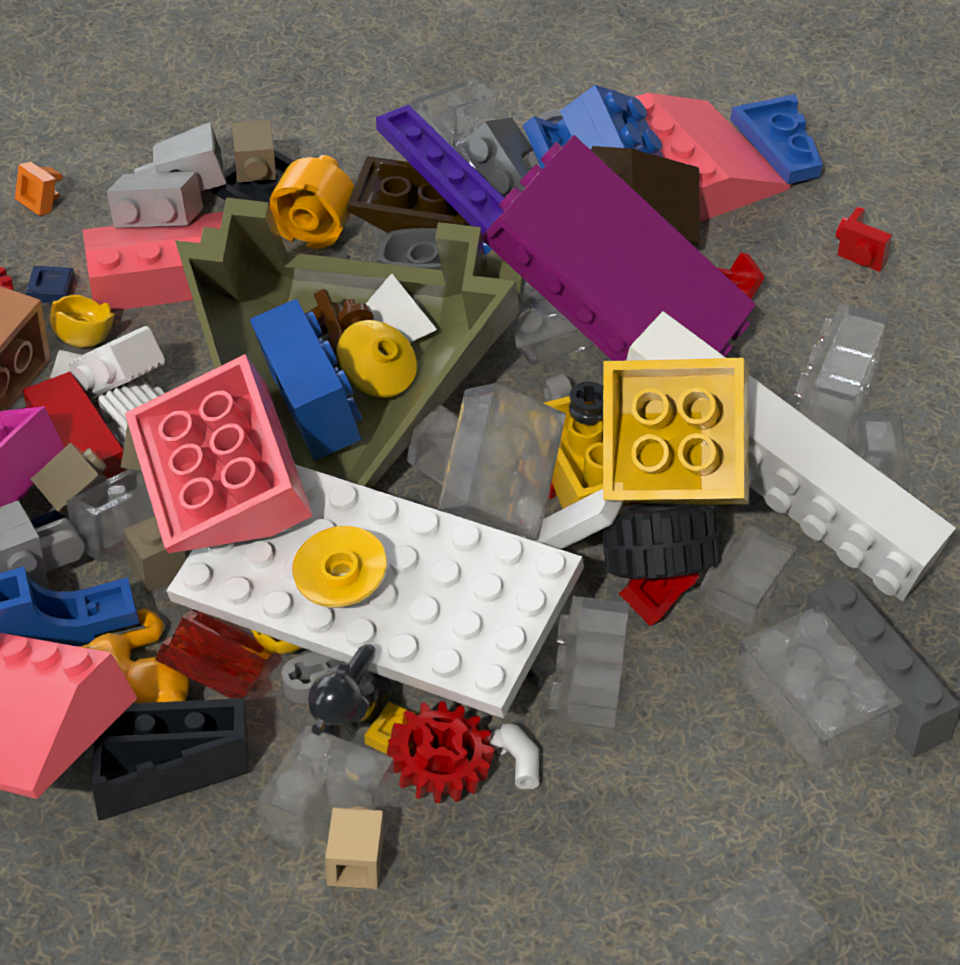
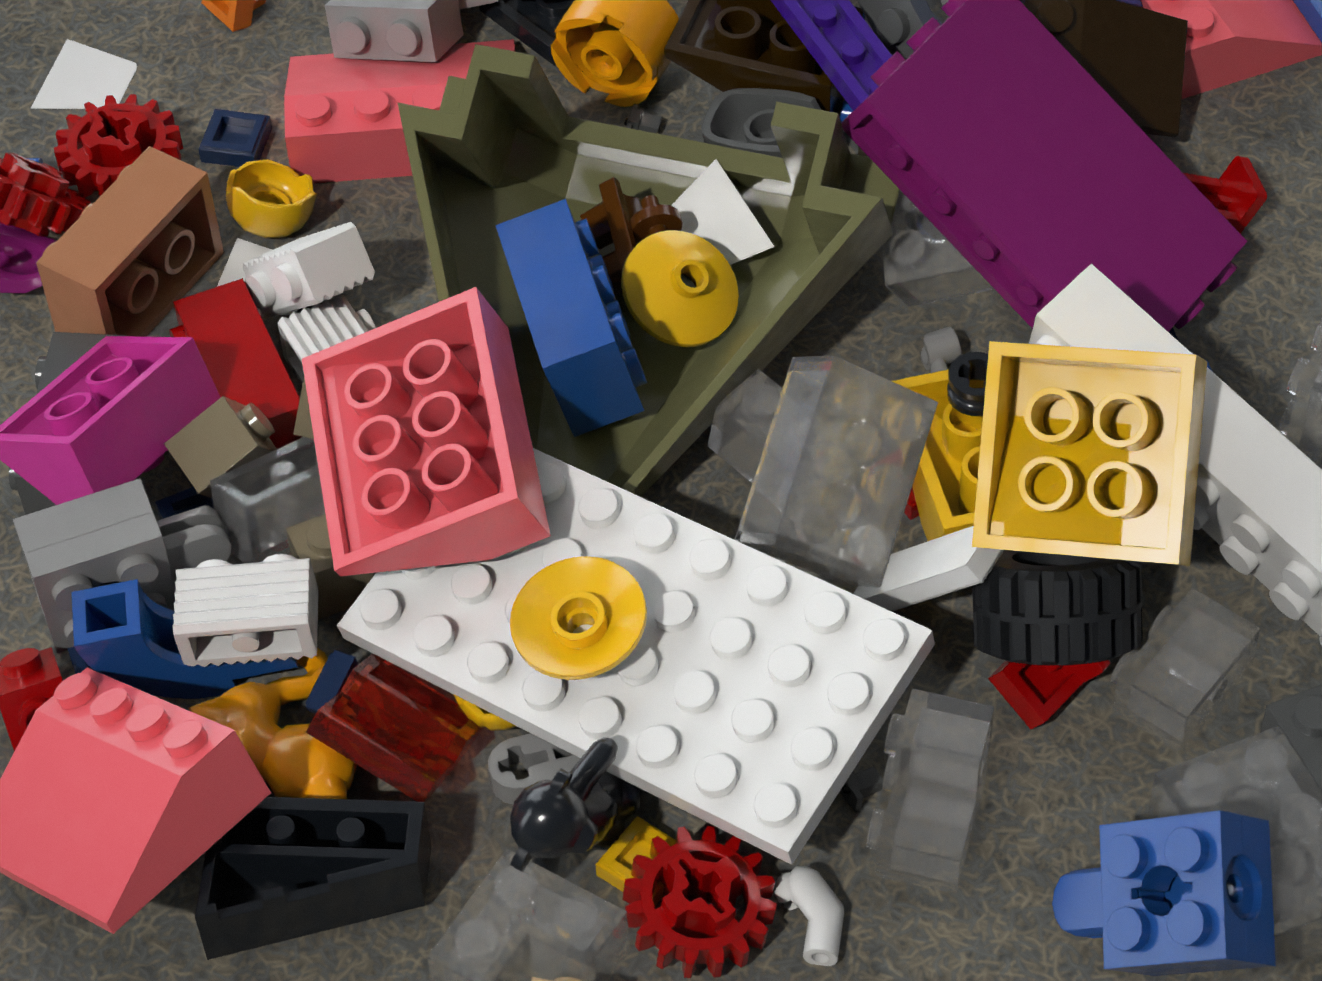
camera: 10 degrees right, 5 degrees up
(102, 585) = (246, 611): none -> white brick
(165, 628) = (331, 679): none -> dark blue tile
(764, 716) = (1176, 895): none -> blue brick

